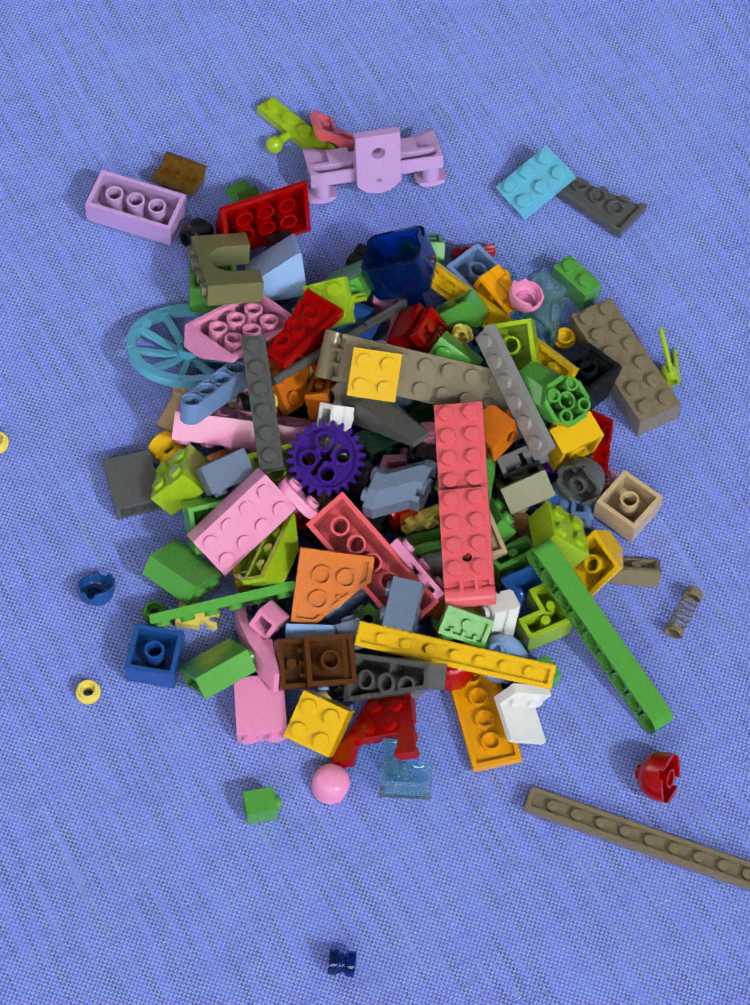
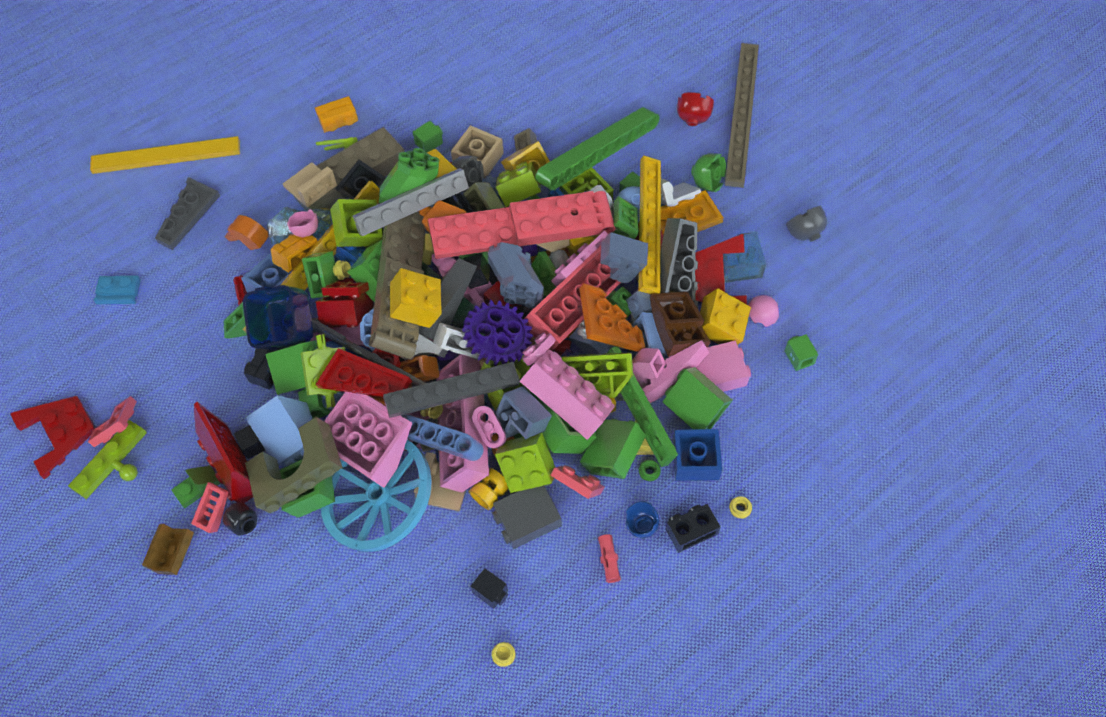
camera: 95 degrees left, 0 degrees up
(63, 438) = (490, 589): none -> black brick
(66, 552) = (609, 558): none -> coral pin
(78, 635) = (695, 532): none -> black brick
(136, 207) = (212, 580): lavender brick -> none
(144, 527) = (586, 486): none -> coral plate
(206, 206) = (199, 519): none -> coral slope
(221, 442) = (490, 427): none -> bright pink plate
(342, 962) = (905, 274): clear blue wheel -> none
(344, 94) = (65, 425): none -> red wing
(375, 163) = (153, 377): lavender piece -> none
(440, 864) = (808, 224): none -> dark grey cylinder
(504, 138) = (117, 289): none -> dark azure plate
(535, 182) = (168, 254): medium azure plate -> none
(546, 768) = (708, 171): none -> bright green cylinder
(549, 254) = (248, 232): none -> orange brick
(580, 284) = (269, 208): bright green brick -> none
(592, 313) = (310, 184): none -> tan bracket
(667, 458) = (428, 136): none -> bright green brick
(691, 188) = (165, 155): none -> yellow tile
(692, 594) = (541, 109): dark tan piece -> none
(721, 363) = (336, 114): none -> light orange brick

